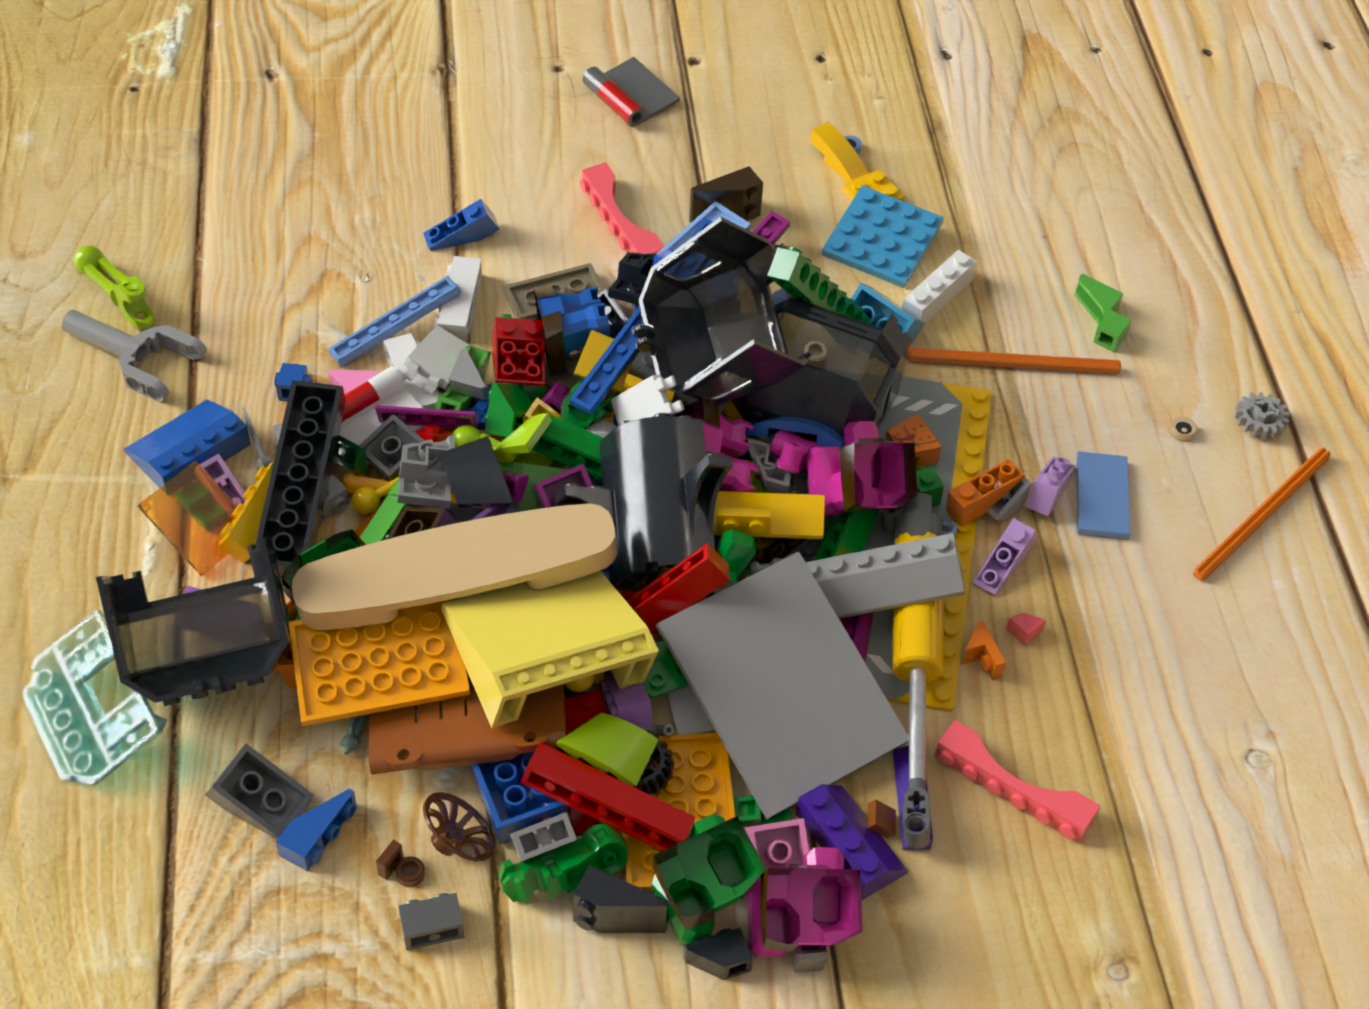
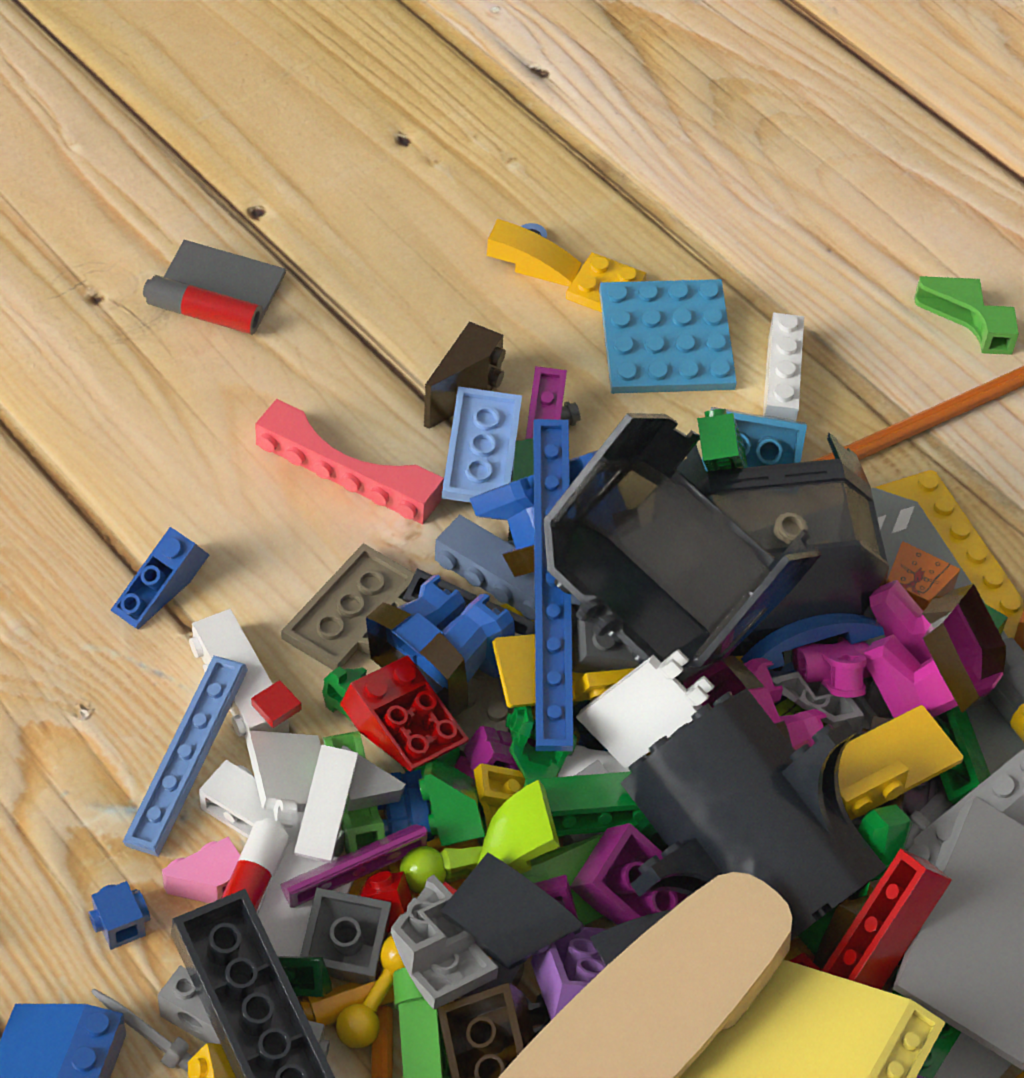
camera: 35 degrees left, 0 degrees up
(432, 373) = (326, 804): none -> white tile
(460, 317) = (276, 704): none -> red tile
(631, 277) = (460, 539): black slope -> none

